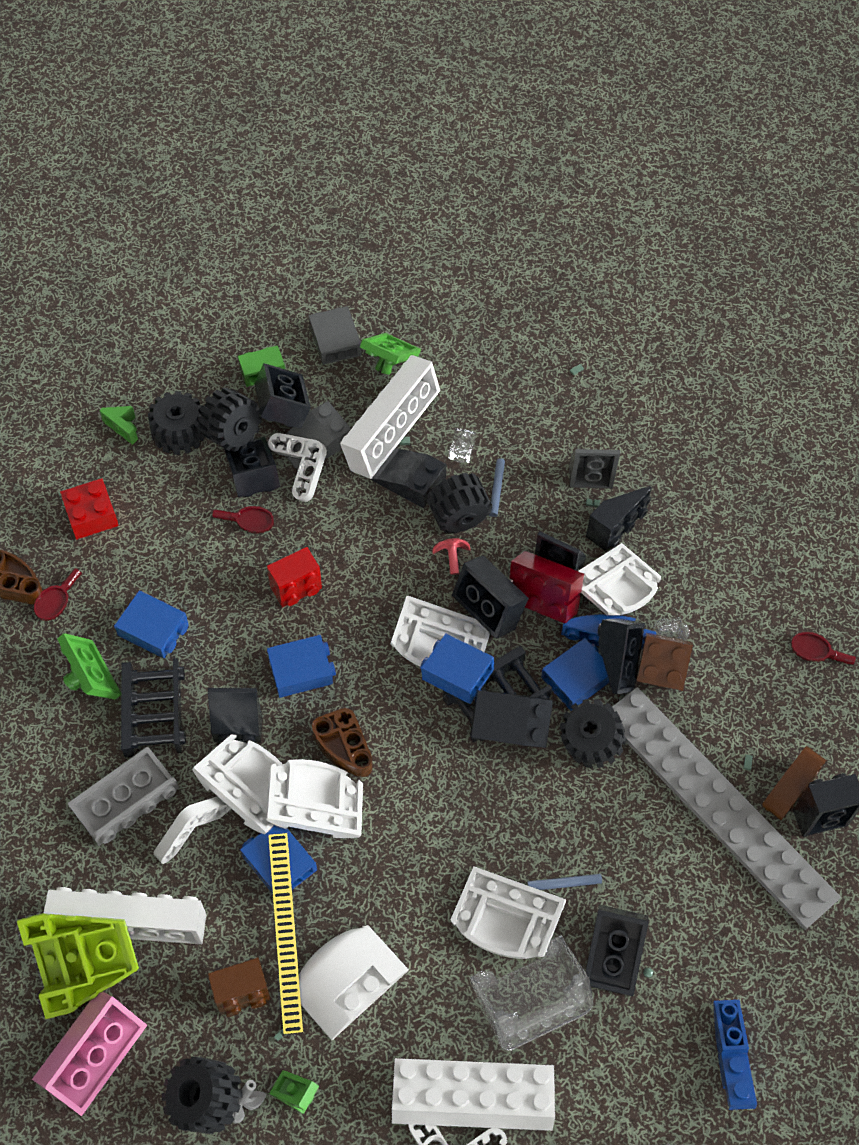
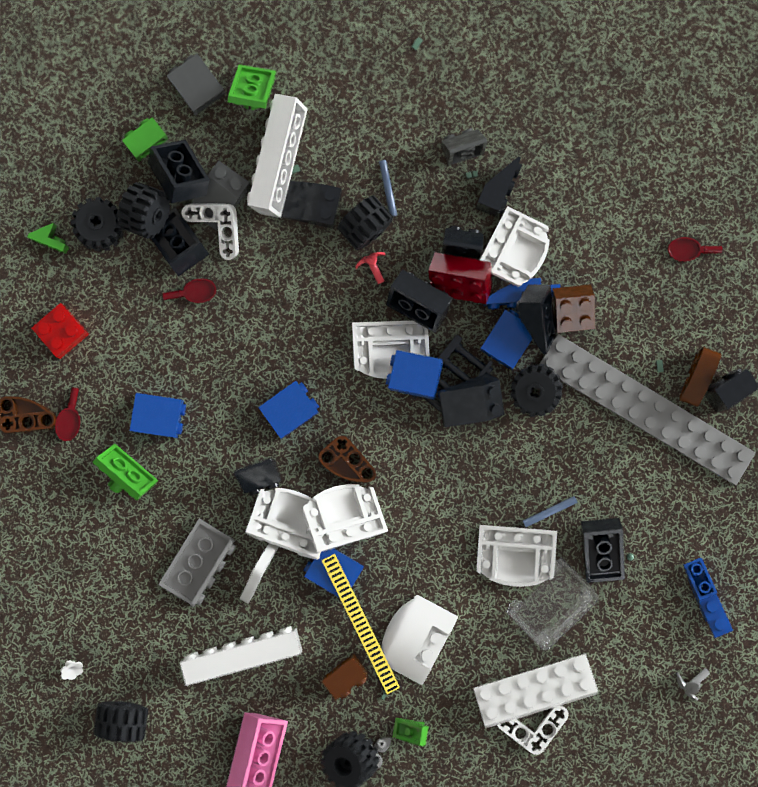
camera: 15 degrees left, 25 degrees up
(77, 957) = (222, 701): lime wedge -> none
(129, 698) = (168, 483): black fence -> none
(294, 577) = (256, 337): red brick -> none
(462, 445) = (346, 161): clear bracket -> none
(672, 627) = (565, 273): clear bracket -> none

